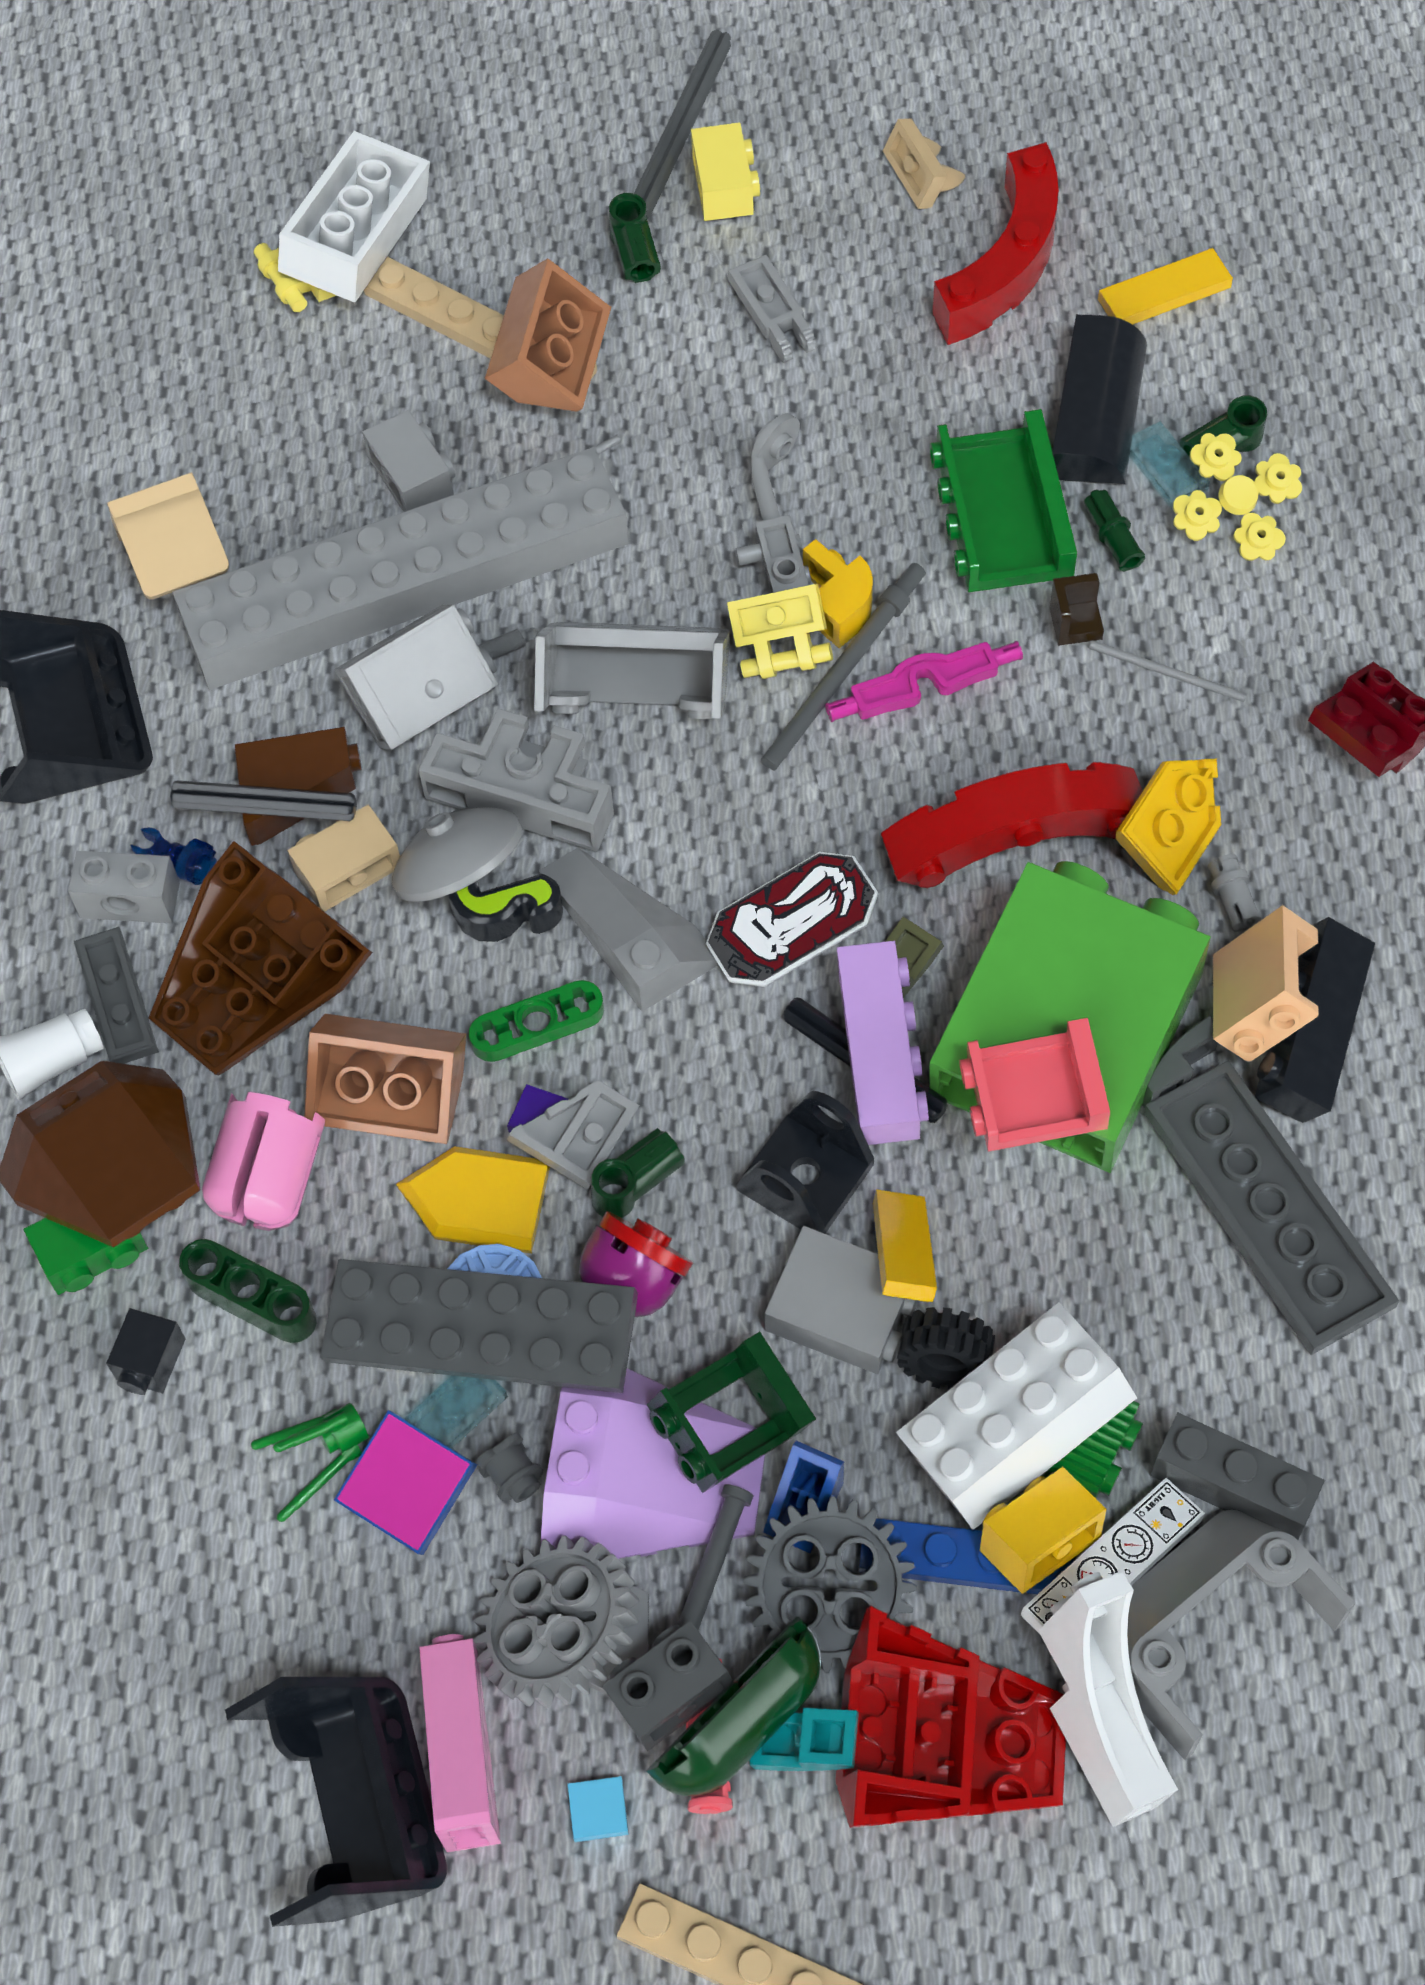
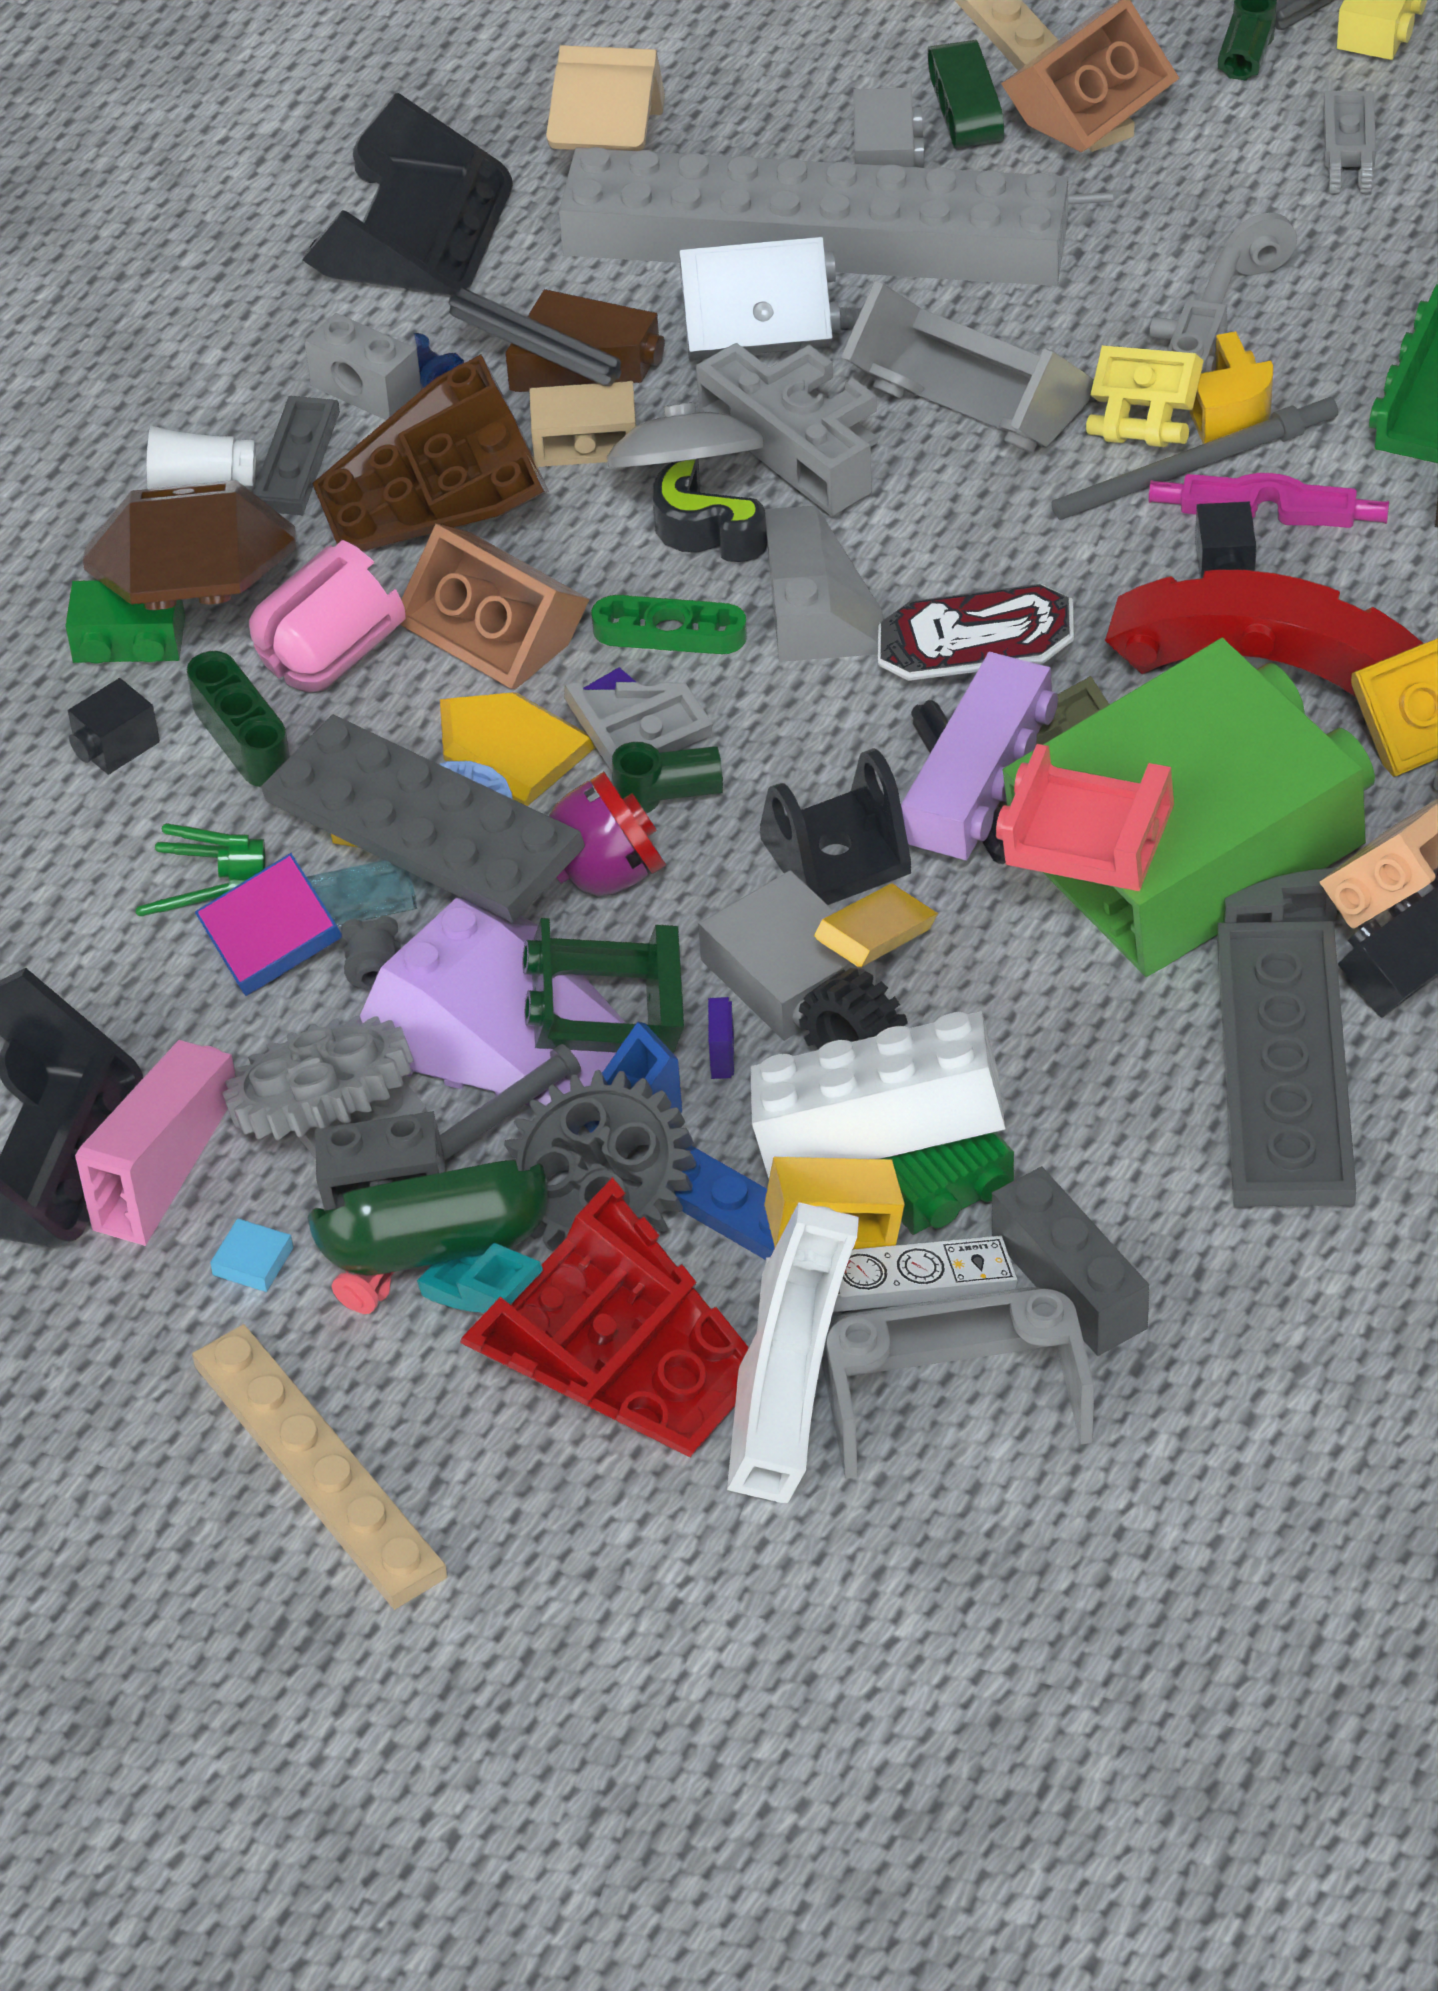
camera: 30 degrees right, 15 degrees down
(445, 390) = (965, 93): none -> dark green beam
(840, 1405) = (721, 1037): none -> dark purple tile
(925, 741) = (1225, 537): none -> black brick

